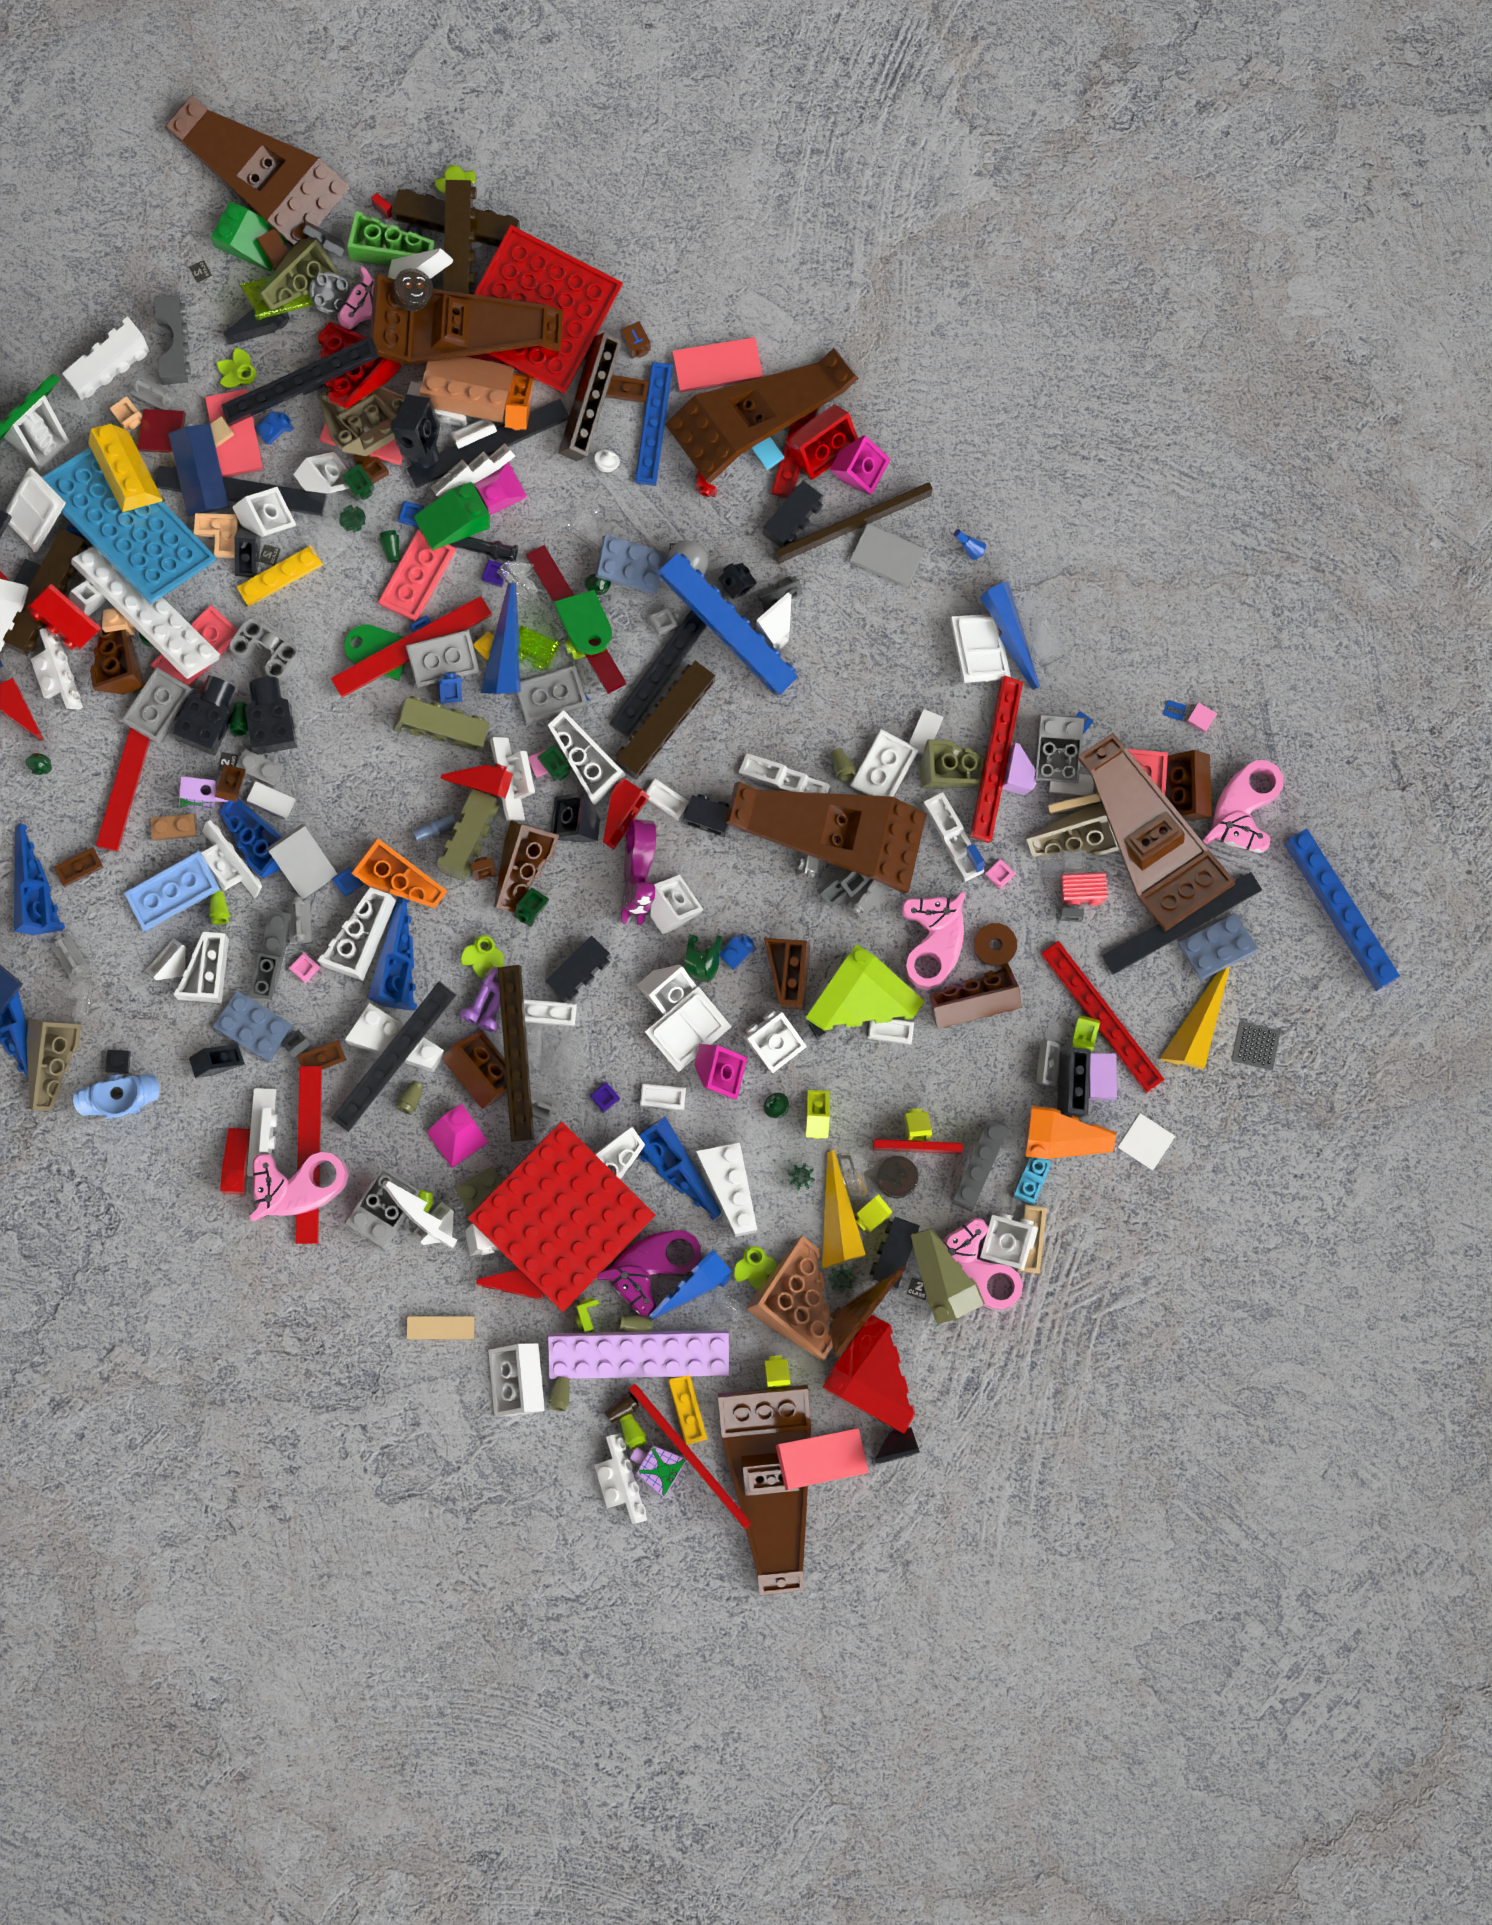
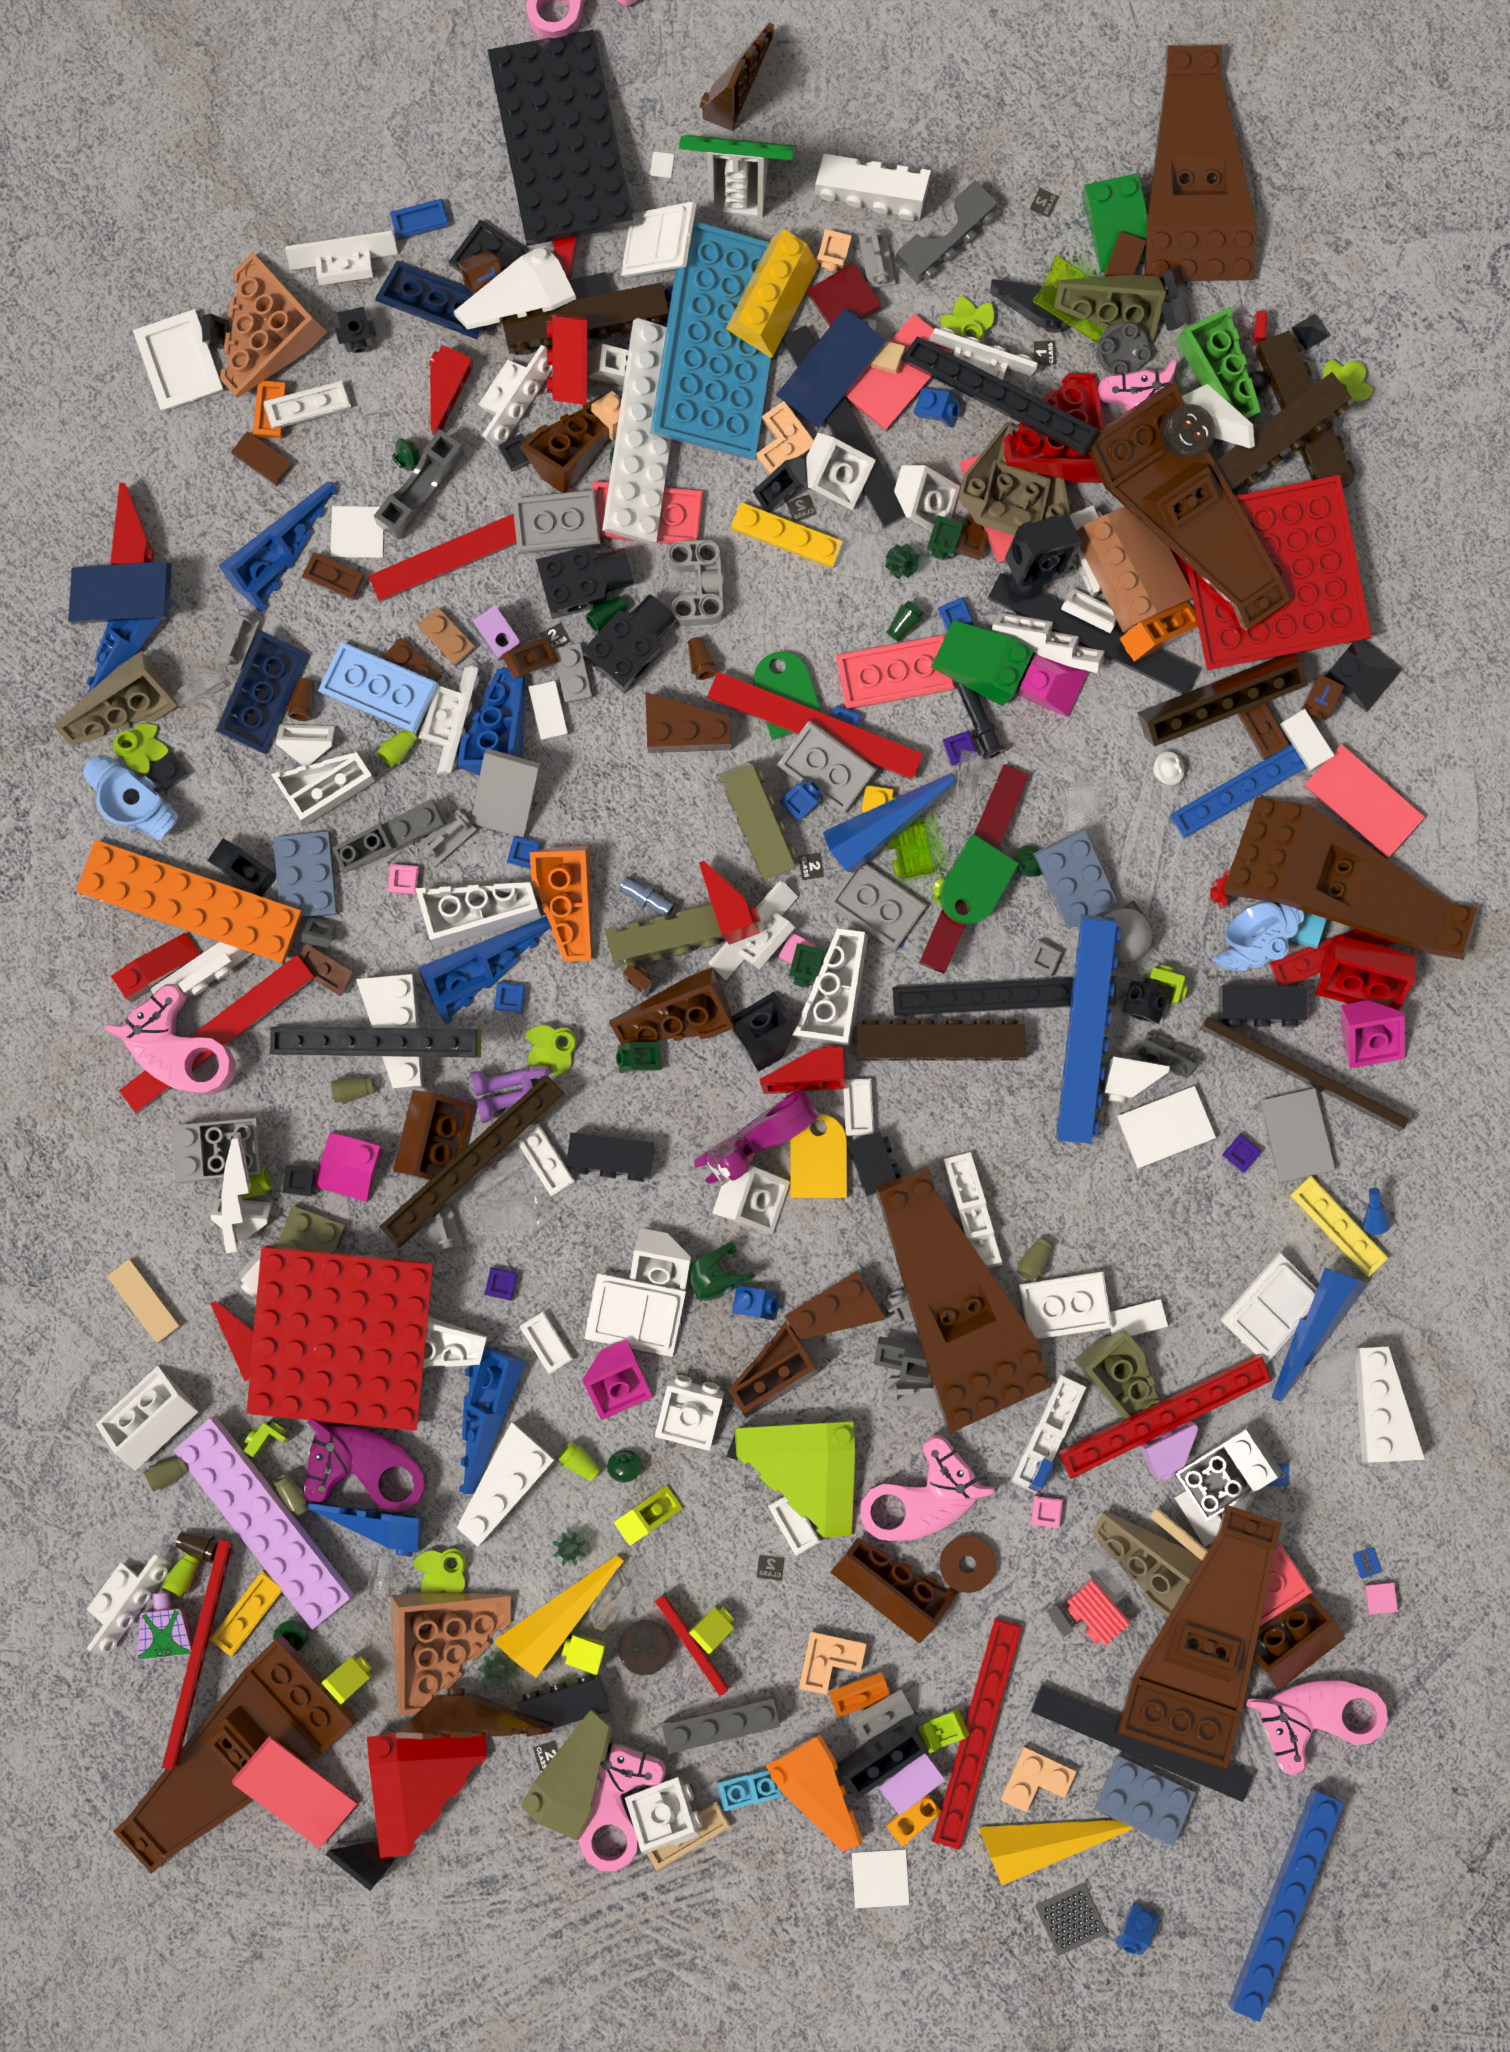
camera: 55 degrees right, 5 degrees up
(62, 832) = (355, 532): none -> white sticker
(66, 769) = (433, 468): none -> dark grey arch
(90, 1065) = (143, 748): none -> lime plate
(92, 699) = (512, 452): none -> black plate
(116, 965) = (261, 692): none -> dark blue slope
(143, 947) = (302, 700): none -> reddish brown cone
(166, 859) = (405, 656): none -> reddish brown plate
(211, 1109) = (189, 901): none -> orange plate
(269, 372) = (990, 359): none -> white bracket
(292, 340) = (1045, 352): none -> clear smoke sticker
(316, 684) = (701, 660): none -> reddish brown cone
(348, 725) = (683, 727): none -> reddish brown wedge
(408, 179) = (1310, 332): none -> black slope
(430, 958) = (509, 997): none -> blue tile
(442, 1172) = (299, 1180): none -> black plate
(495, 716) = (811, 866): none -> clear smoke sticker
(640, 305) = (1363, 673): none -> black slope
(654, 367) = (1307, 740): none -> white tile
(682, 848) = (819, 1162): none -> yellow tile
(721, 1385) = (294, 1632): none -> dark green hat
(737, 556) = (1167, 978): none -> lime bracket
(750, 483) = (1259, 936): none -> light blue piece
(751, 1131) = (578, 1461): none -> lime cone
(780, 902) = (836, 1309): none -> reddish brown wedge
(822, 628) = (1165, 1127): none -> white tile
(872, 596) = (1241, 1153): none -> dark purple tile
(906, 1065) = (770, 1567): none -> clear smoke sticker
(961, 573) = (1339, 1226): none -> light yellow tile
(984, 1070) = (824, 1653): none -> light nougat plate
(1025, 1068) = (859, 1694): none -> orange plate
(1091, 630) = (1383, 1412): none -> white wedge
(1126, 1094) = (913, 1820): none -> light orange leg
(1150, 1001) = (1034, 1771): none -> light nougat plate
(1292, 1009) = (1137, 1930): none -> blue bracket

